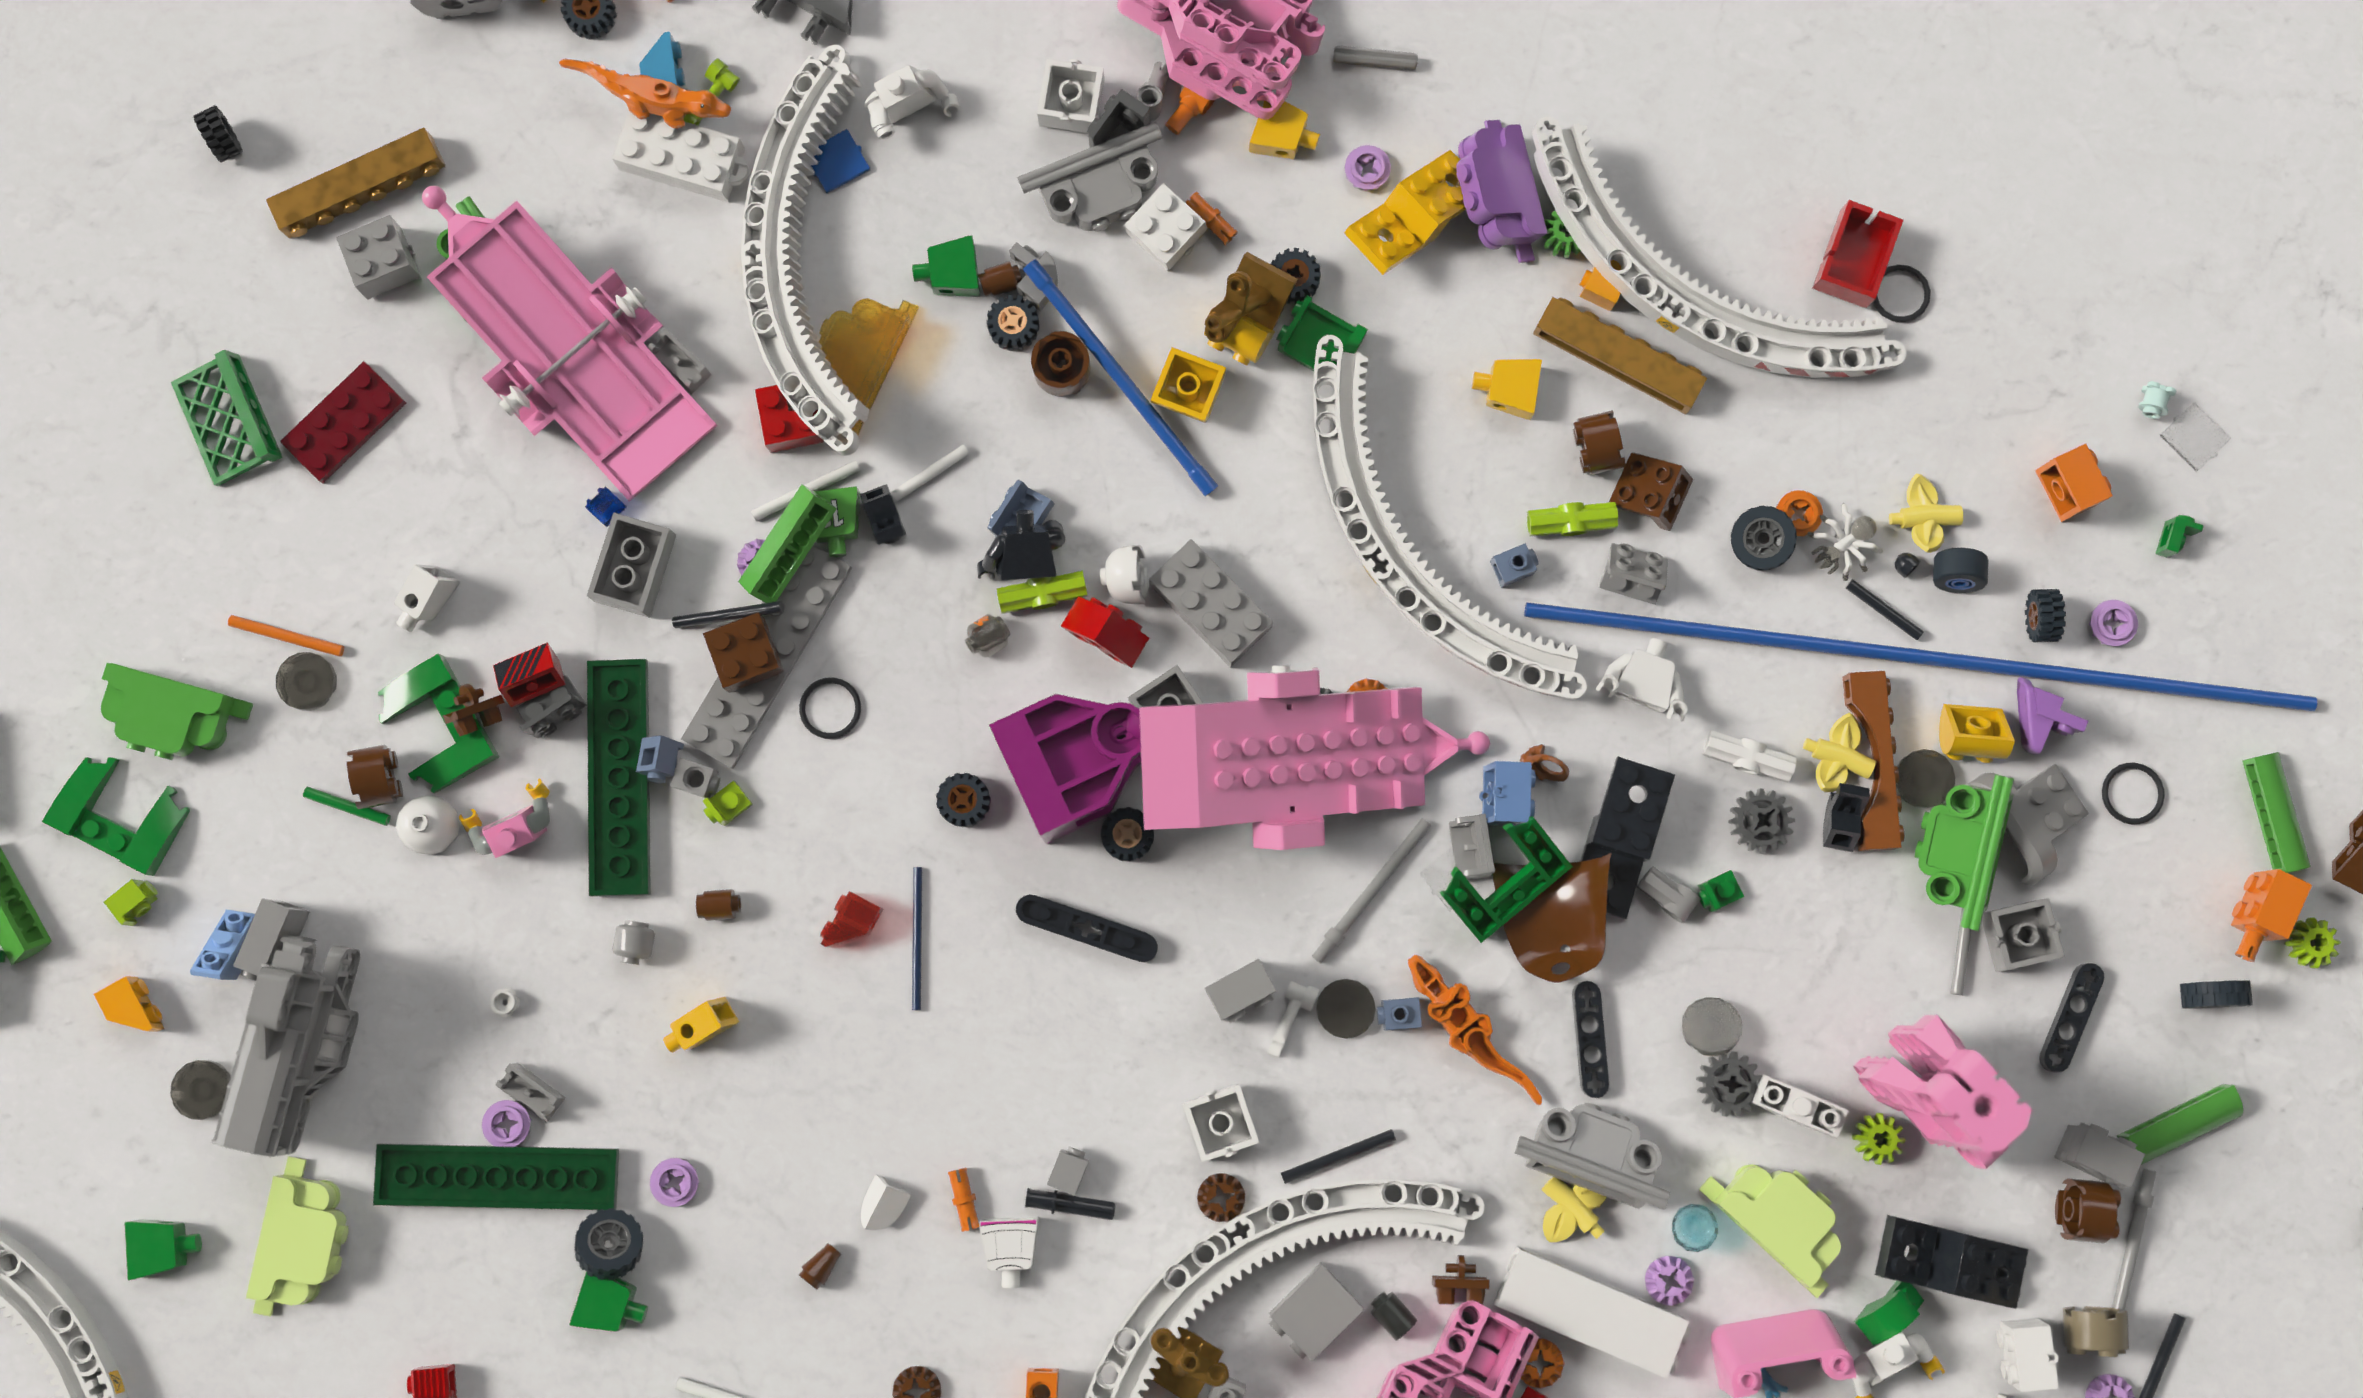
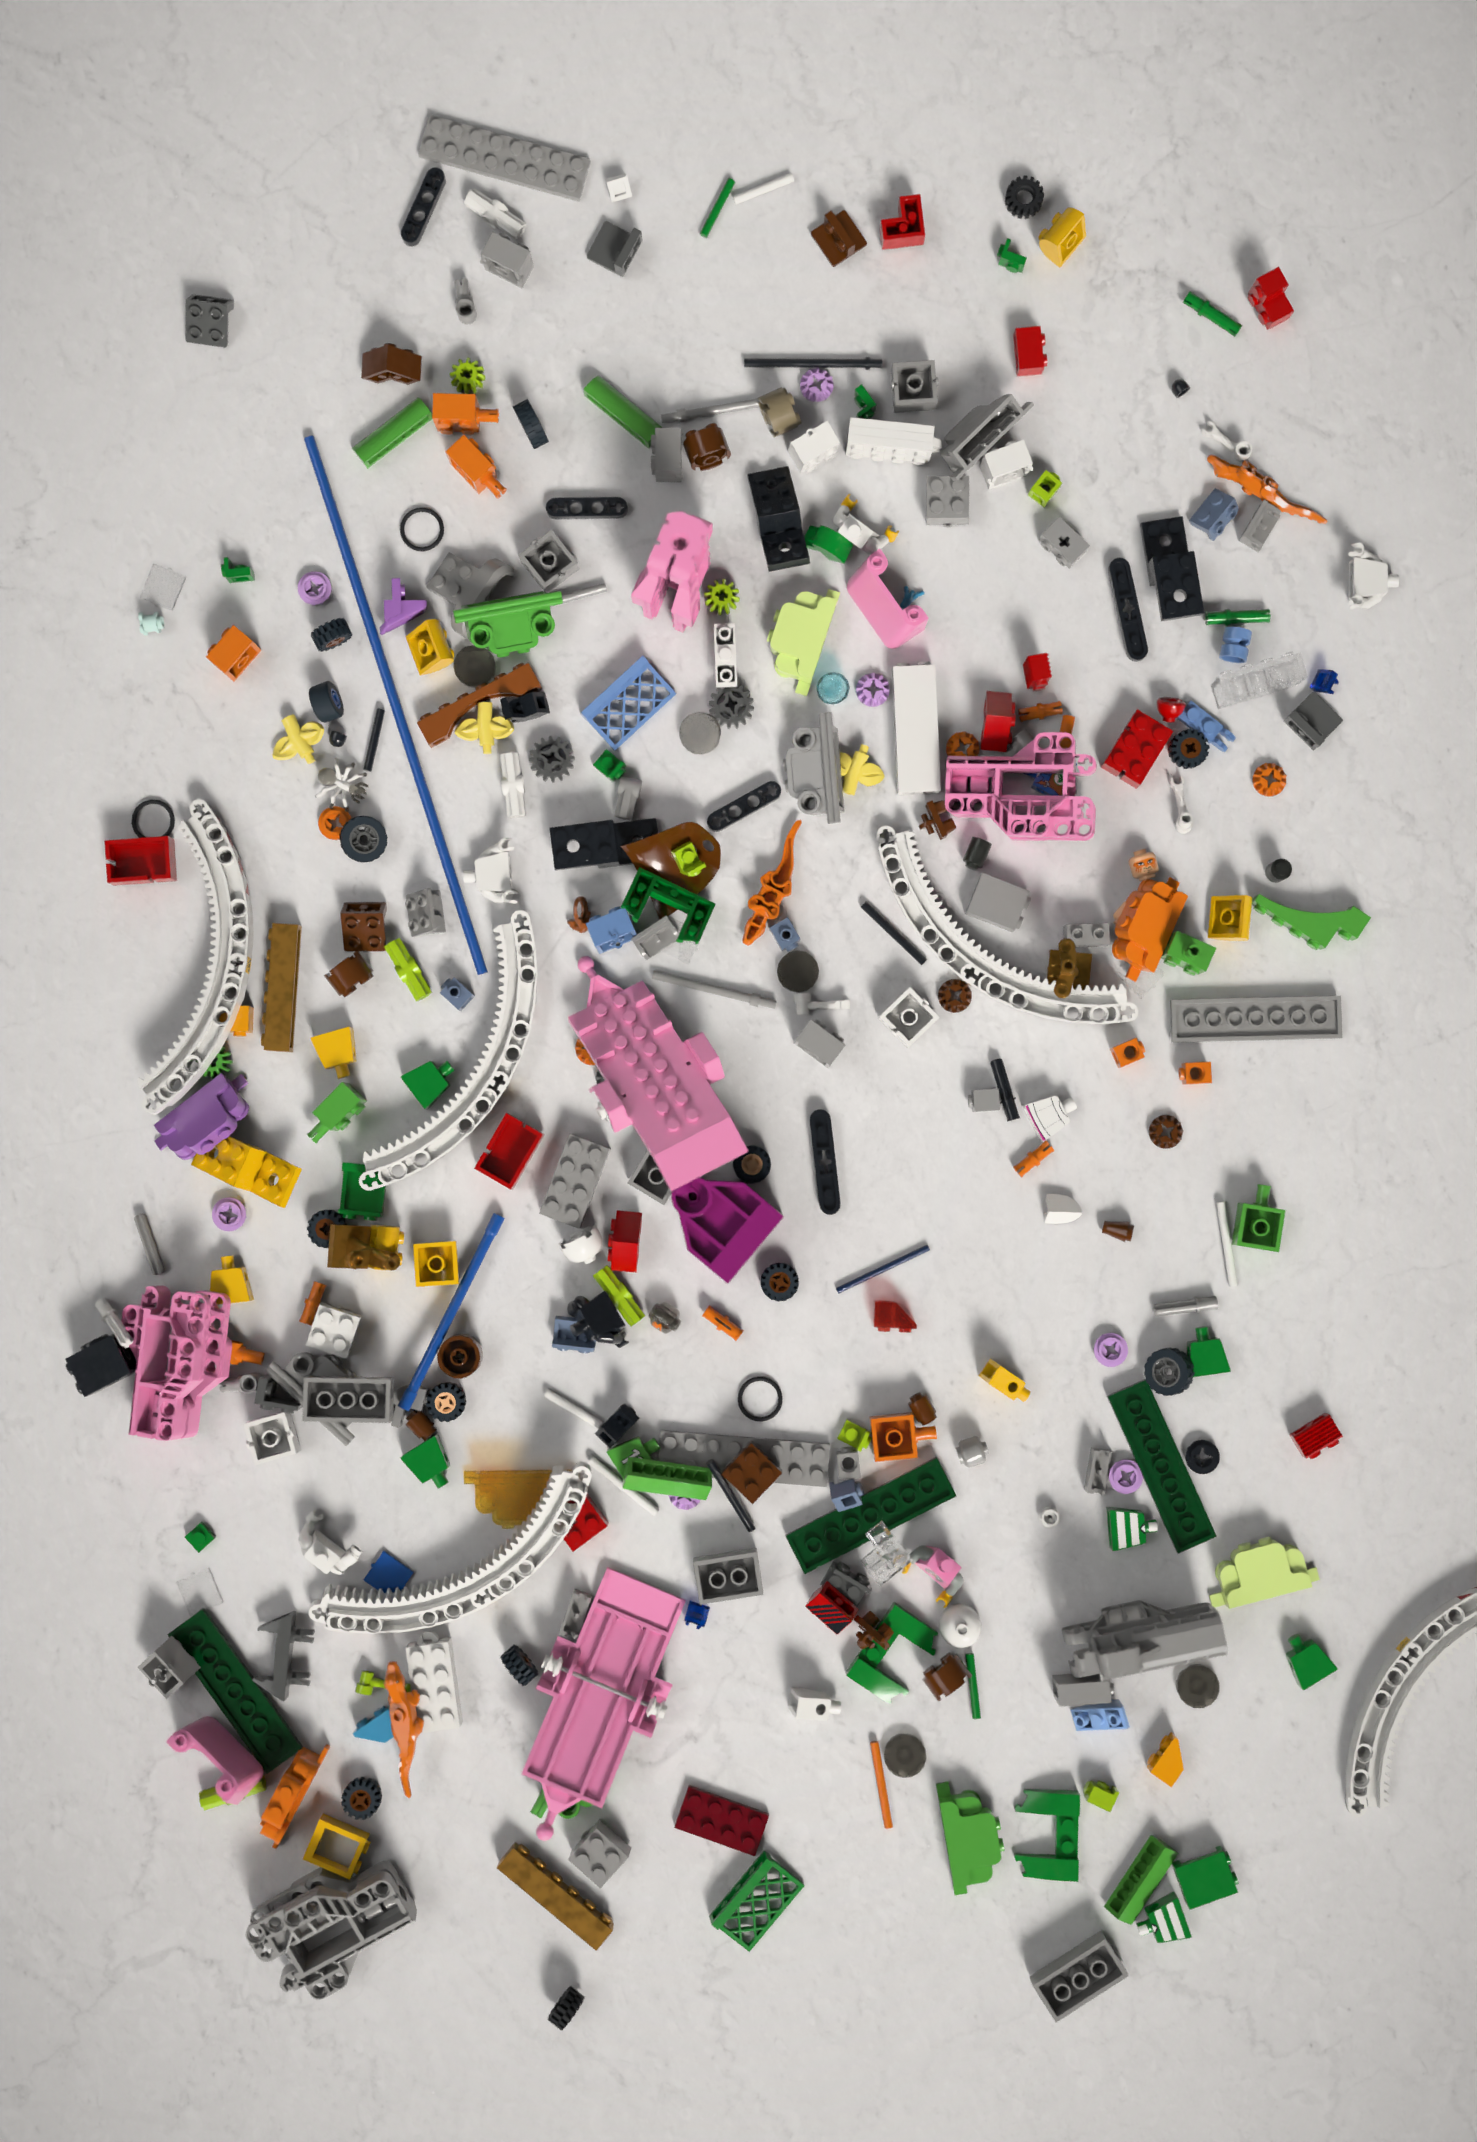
camera: 115 degrees left, 5 degrees up
(440, 1095) = (1128, 1528): none -> green torso
(468, 1239) = (1209, 1463): none -> black gear
(557, 773) = (887, 1557): none -> clear brick
(651, 263) = (519, 1665): none -> black wheel
(681, 1307) = (1186, 1306): none -> light grey axle
(699, 854) = (896, 1436): none -> orange brick
(930, 713) = (710, 1315): none -> orange pin
(1072, 201) = (348, 1399): none -> light grey brick
(1283, 541) = (510, 1151): none -> red piece
(1418, 479) = (428, 1082): none -> green torso
(1435, 352) = (337, 1110): none -> bright green brick
(1553, 934) = (688, 860): none -> lime bracket
(1816, 943) = (620, 686): none -> medium blue fence
(2190, 896) = (474, 466): none -> orange brick

